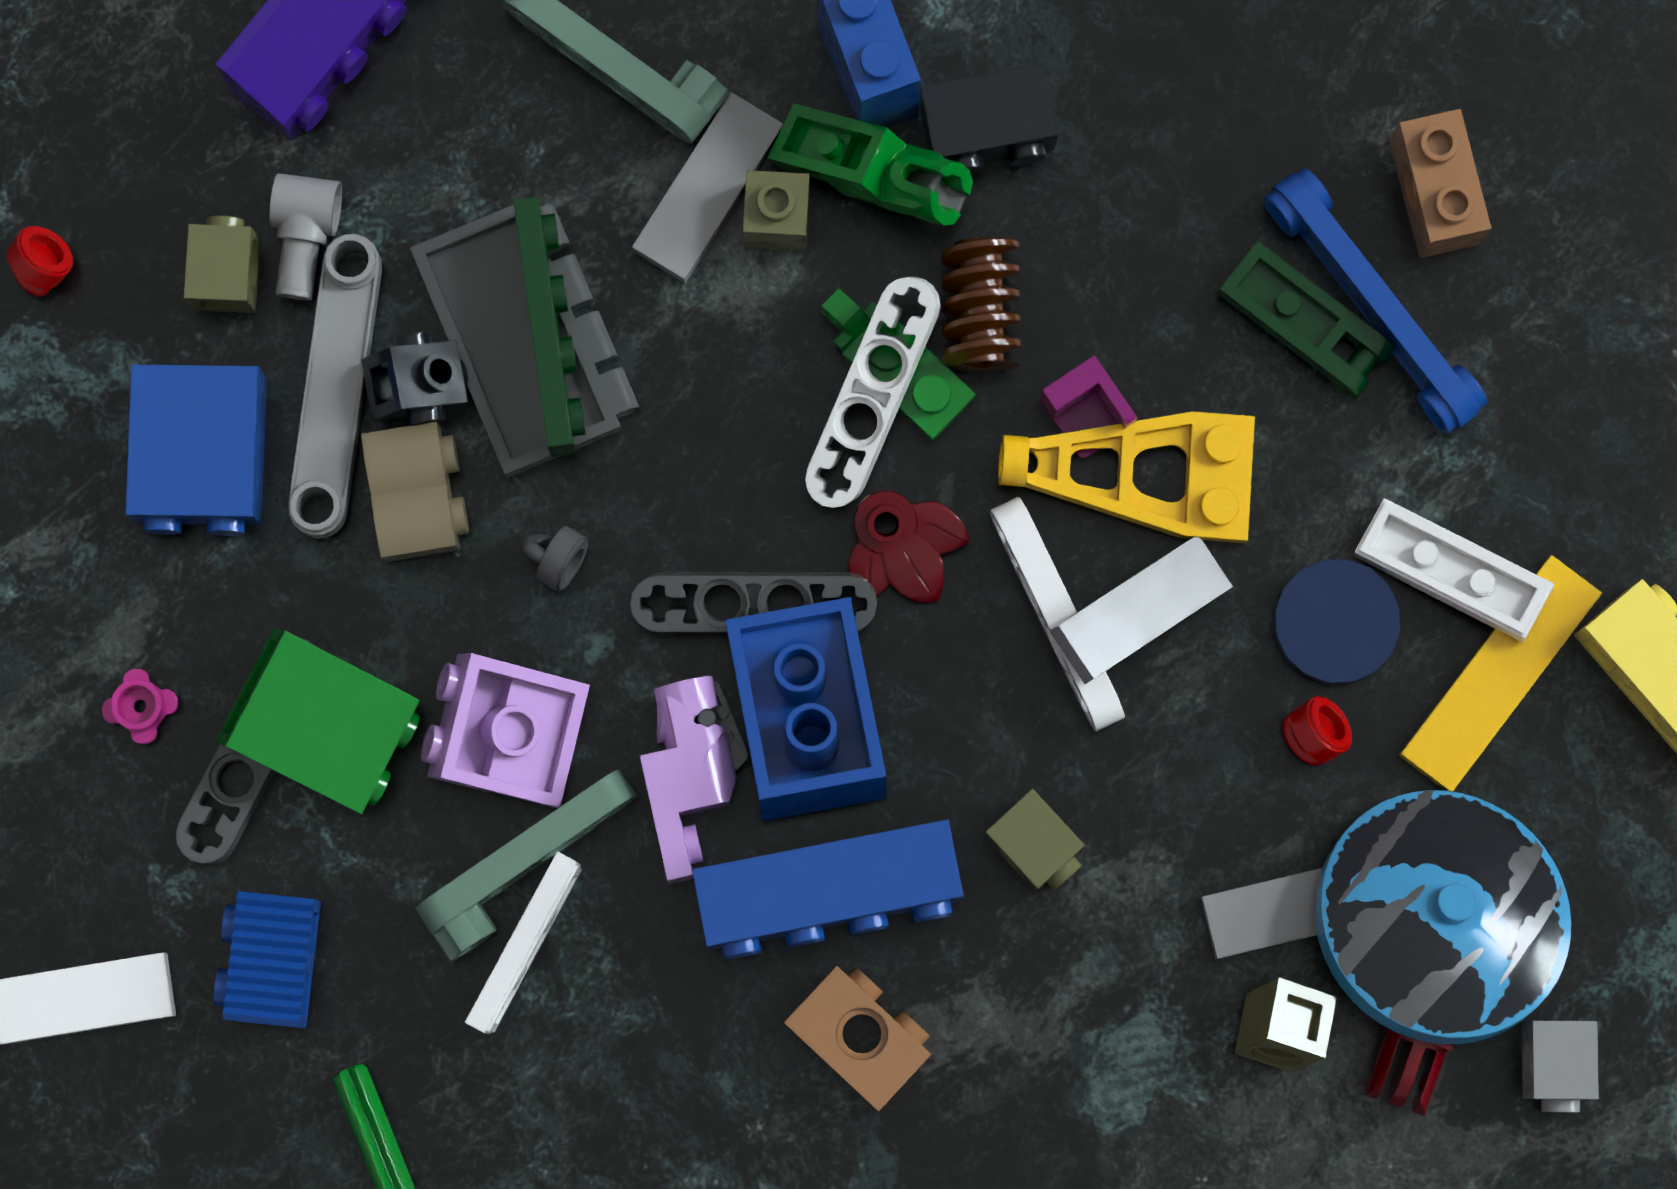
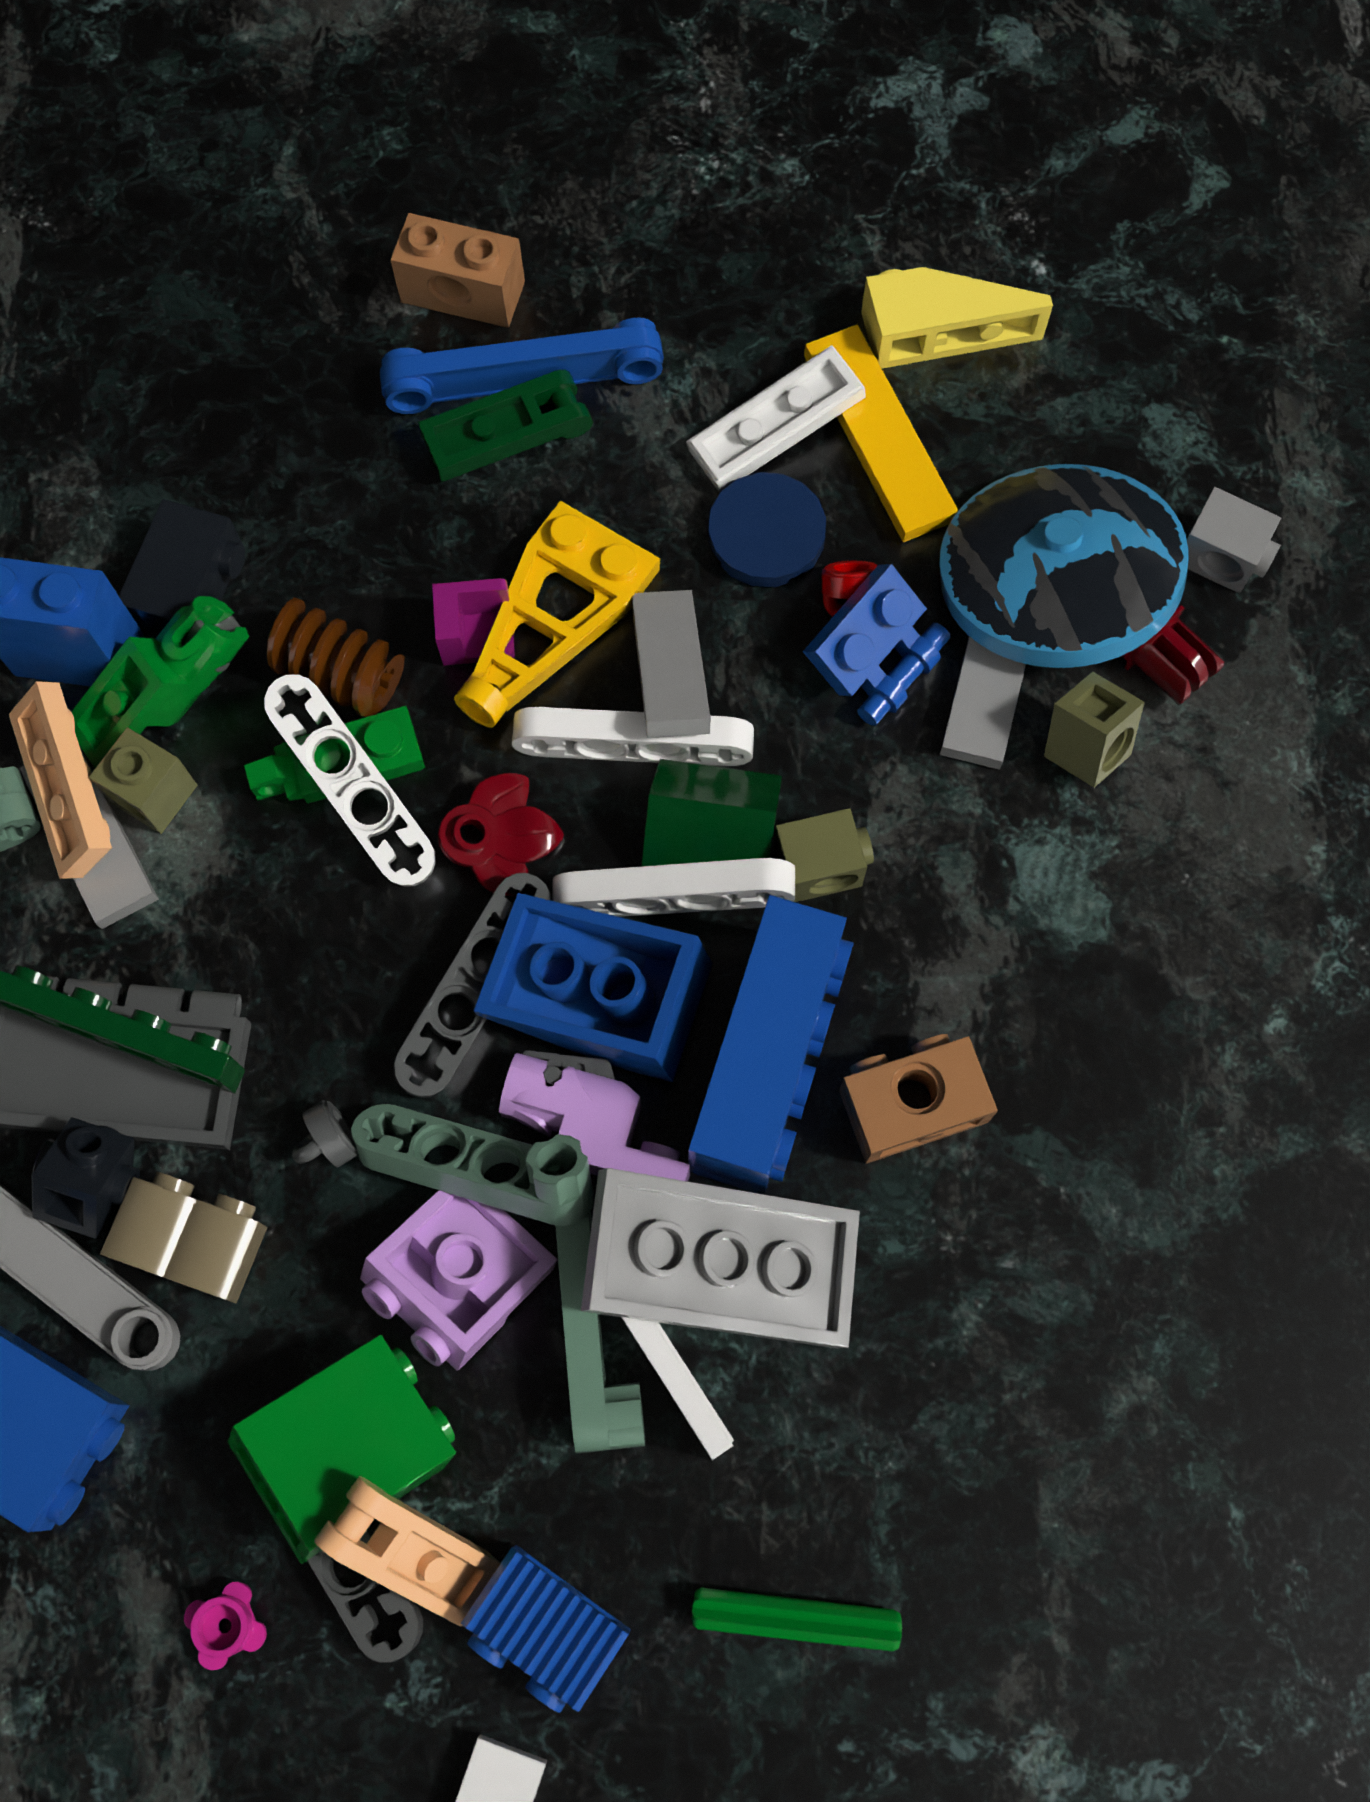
camera: 60 degrees left, 10 degrees down
(267, 822) = (408, 1552): none -> light nougat plate
(608, 767) = (551, 1177): none -> sand green beam
(627, 945) = (720, 1259): none -> light grey plate
(734, 142) = (60, 780): none -> light nougat plate
(927, 729) = (677, 887): none -> white beam
(1015, 727) = (709, 814): none -> dark green slope
(1271, 771) = (864, 633): none -> blue plate

